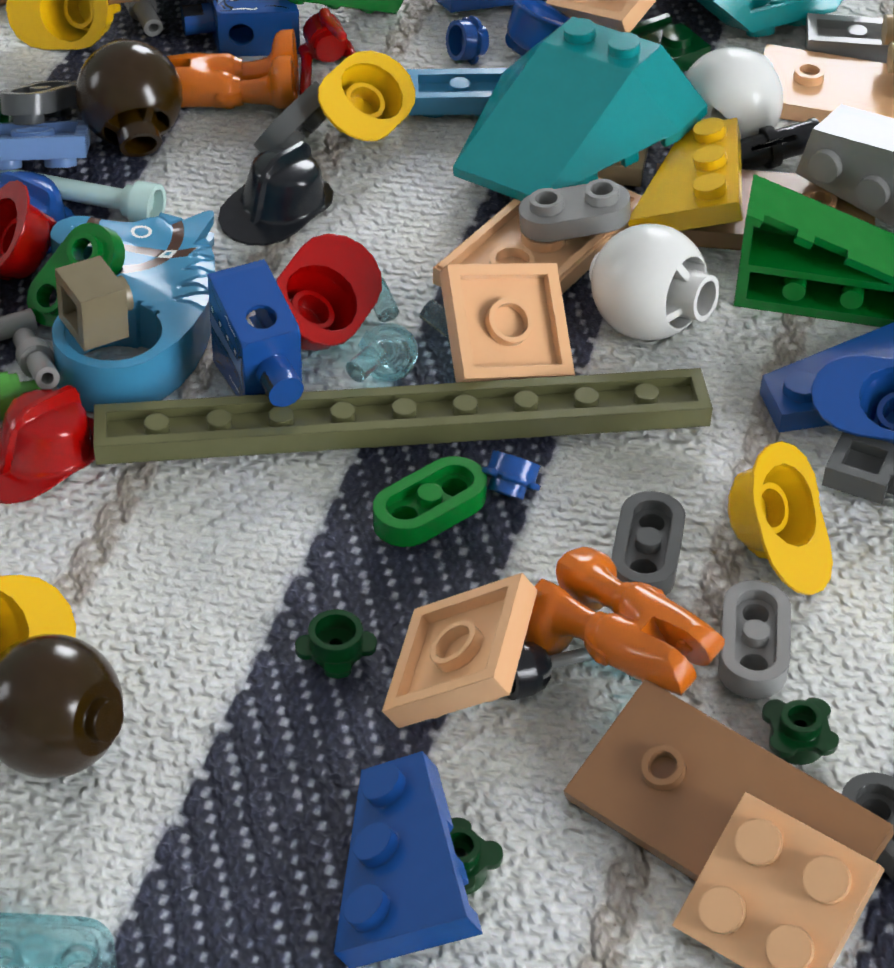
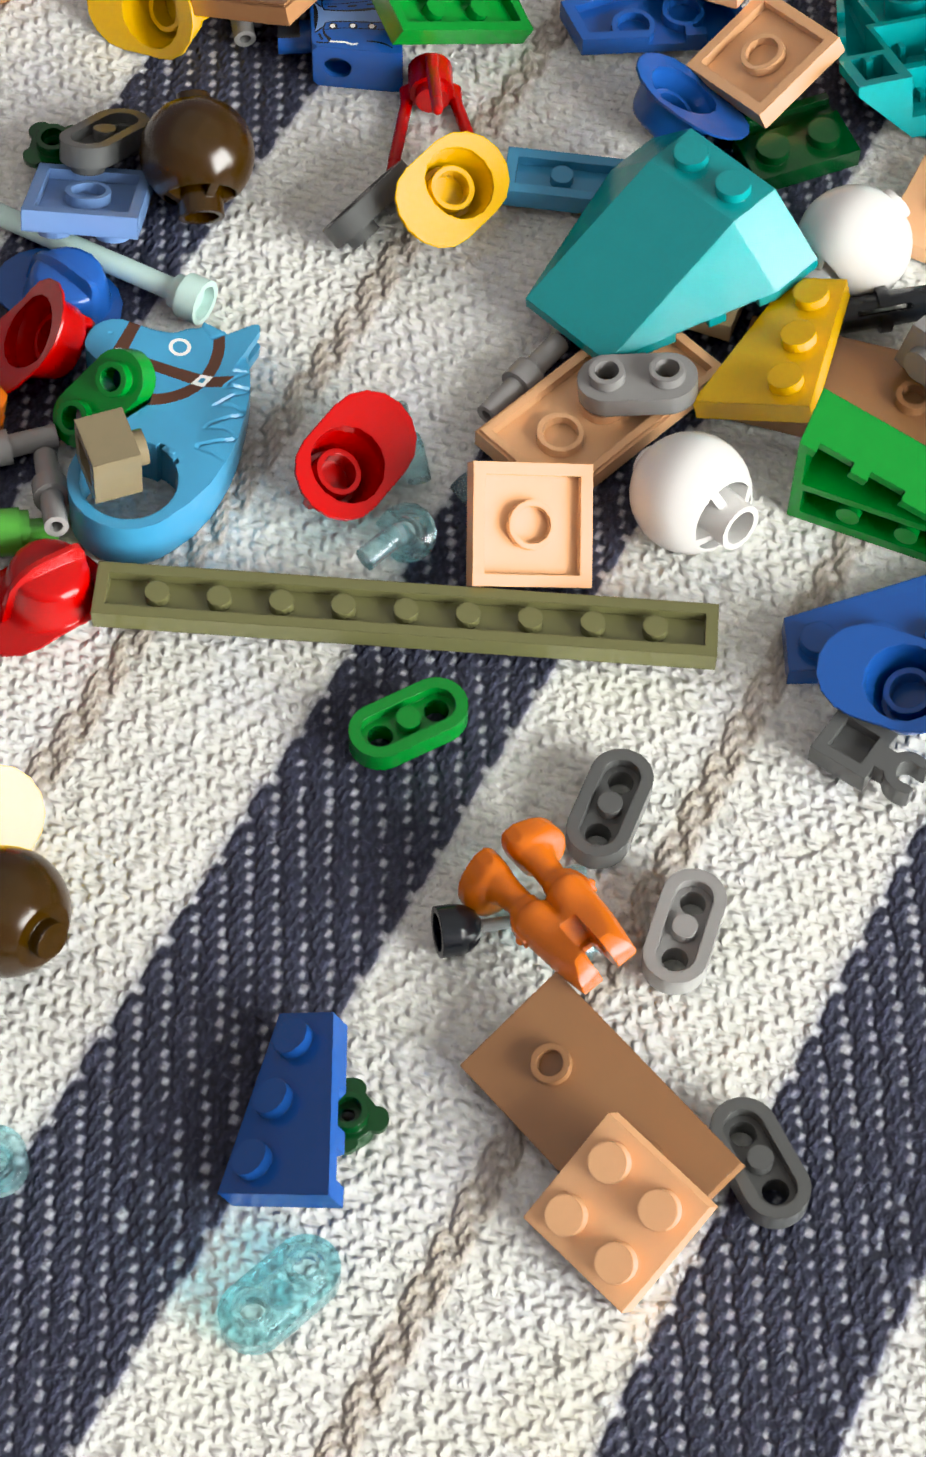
camera: 10 degrees right, 15 degrees up
(229, 82) = (303, 129): orange piece -> none
(261, 356) = (272, 527): blue torso -> none
(278, 197) = (333, 307): black piece -> none
(335, 642) = (284, 855): dark green plate -> none
(461, 651) = (394, 908): light nougat plate -> none
(464, 225) = (524, 375): none -> light grey bar
(467, 39) = (588, 104): blue plate -> none
(511, 475) = (495, 705): blue plate -> none
(781, 518) = (749, 802): yellow piece -> none
(800, 730) = (694, 1052): dark green plate -> none

